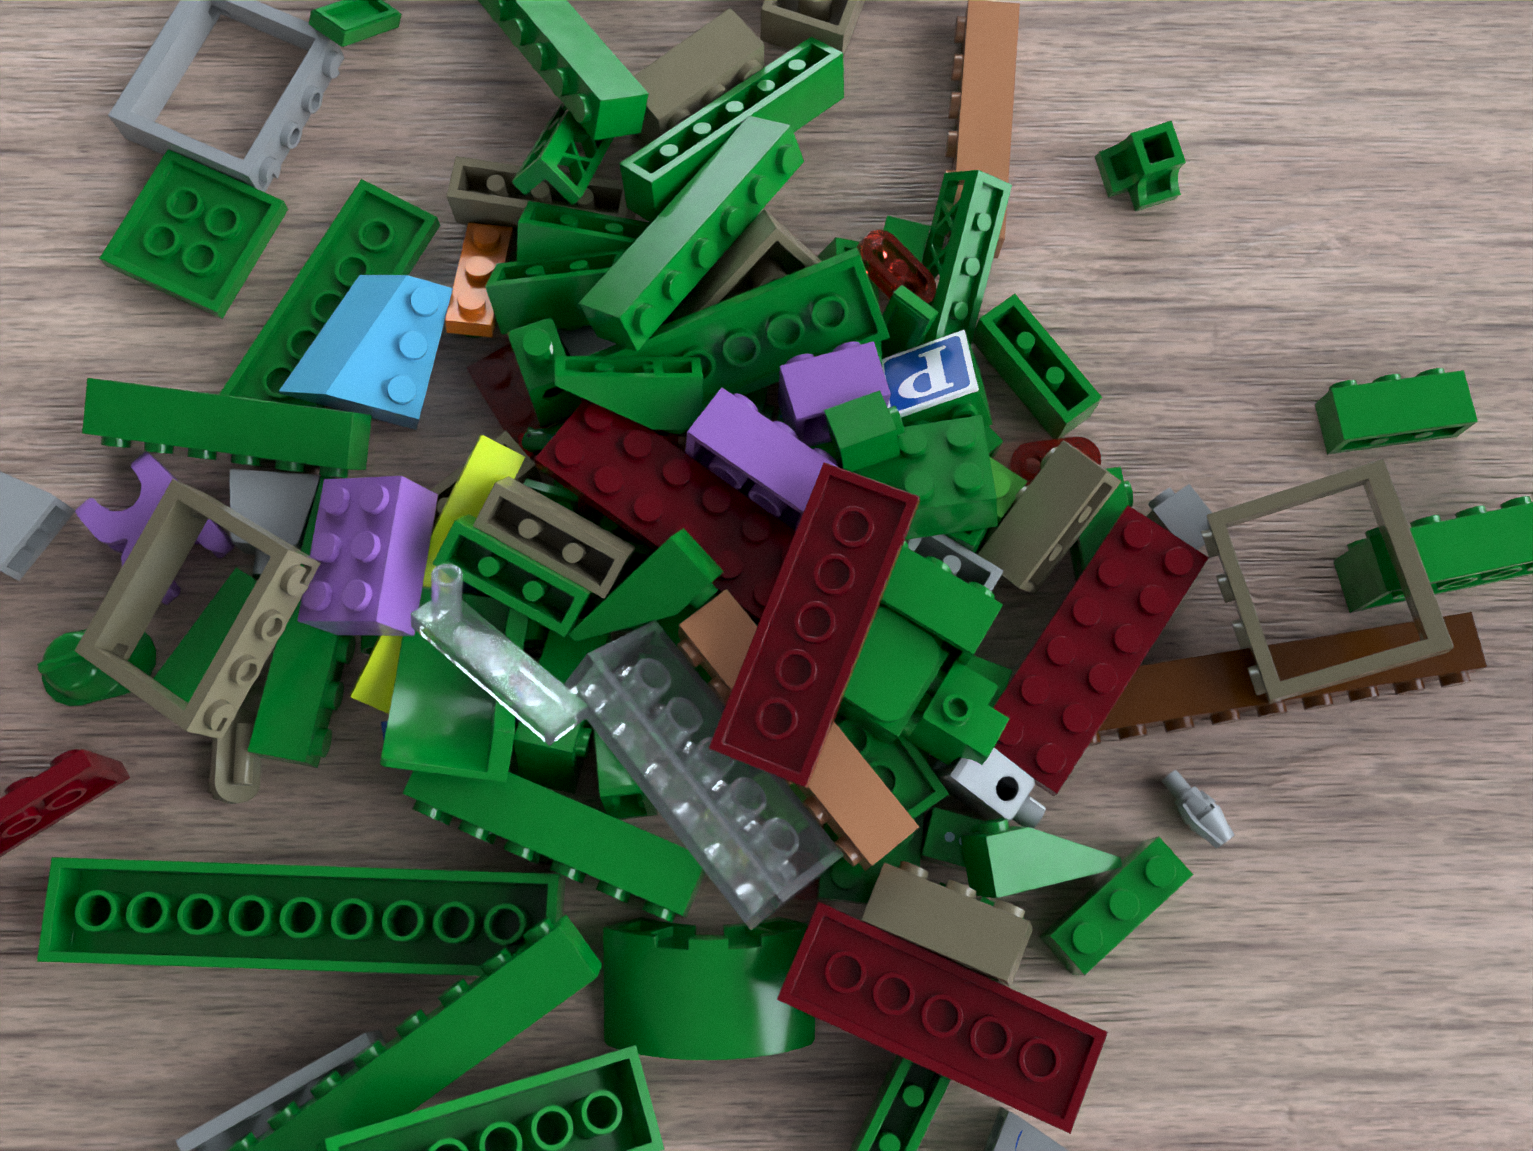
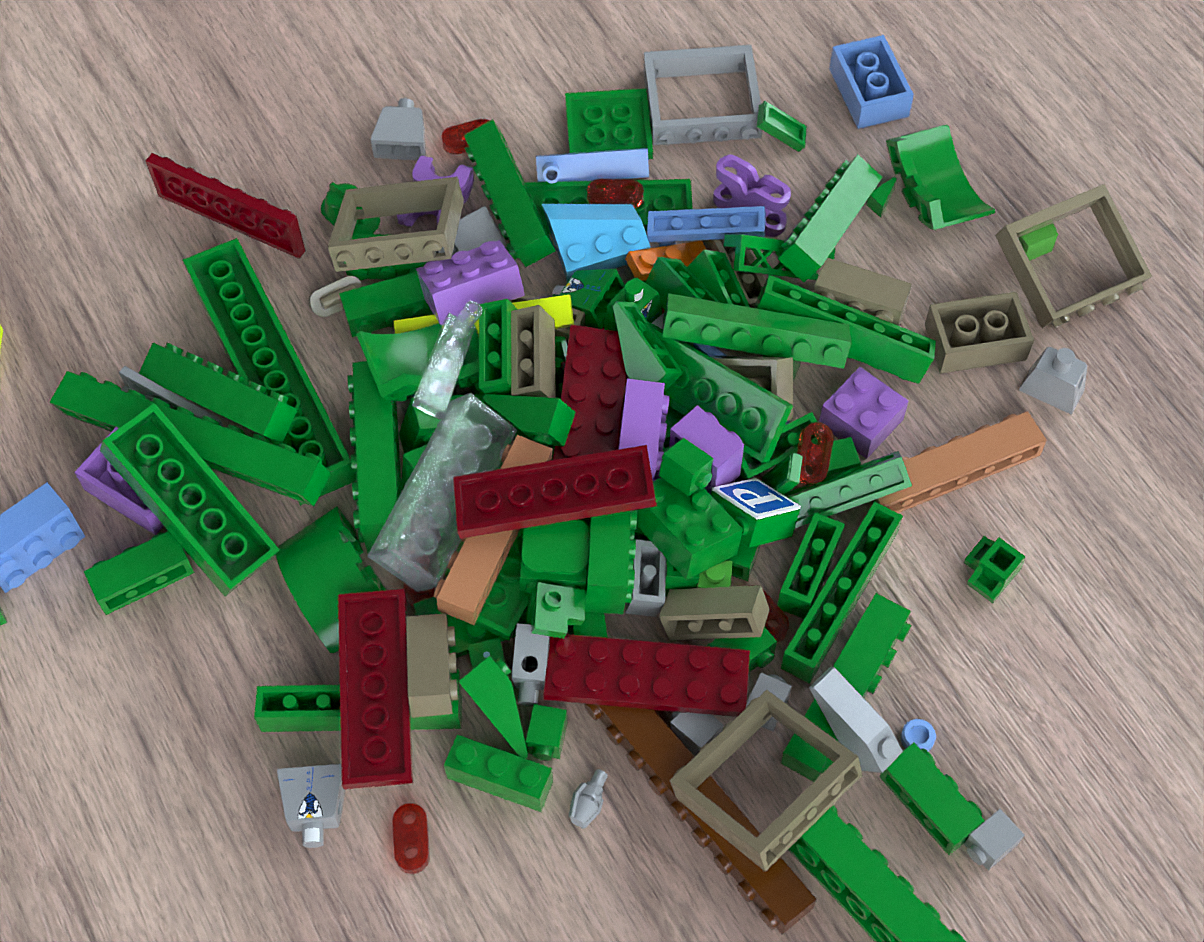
camera: 65 degrees right, 15 degrees down
(67, 427) = (453, 137): none -> clear red plate
(250, 294) = (593, 165): none -> piece
(318, 1017) = (219, 393): none -> green brick
(324, 284) = (615, 192): none -> clear red plate
(447, 118) = (751, 191): none -> medium lavender piece
(468, 198) = (704, 224): none -> medium blue piece
(470, 404) = (592, 293): none -> green torso
(852, 181) = (864, 411): none -> medium lavender brick
(1087, 814) = (546, 732): none -> green brick
(1130, 407) = (841, 592): none -> green brick
(1140, 1066) = (411, 836): none -> clear red plate
(1185, 631) = (695, 729): none -> light grey brick
(1206, 416) = (859, 663): none -> green brick
(1291, 438) = (855, 722): none -> slope
(1303, 381) = (919, 732): none -> light blue tile
(1485, 372) = (993, 840): none -> light grey brick

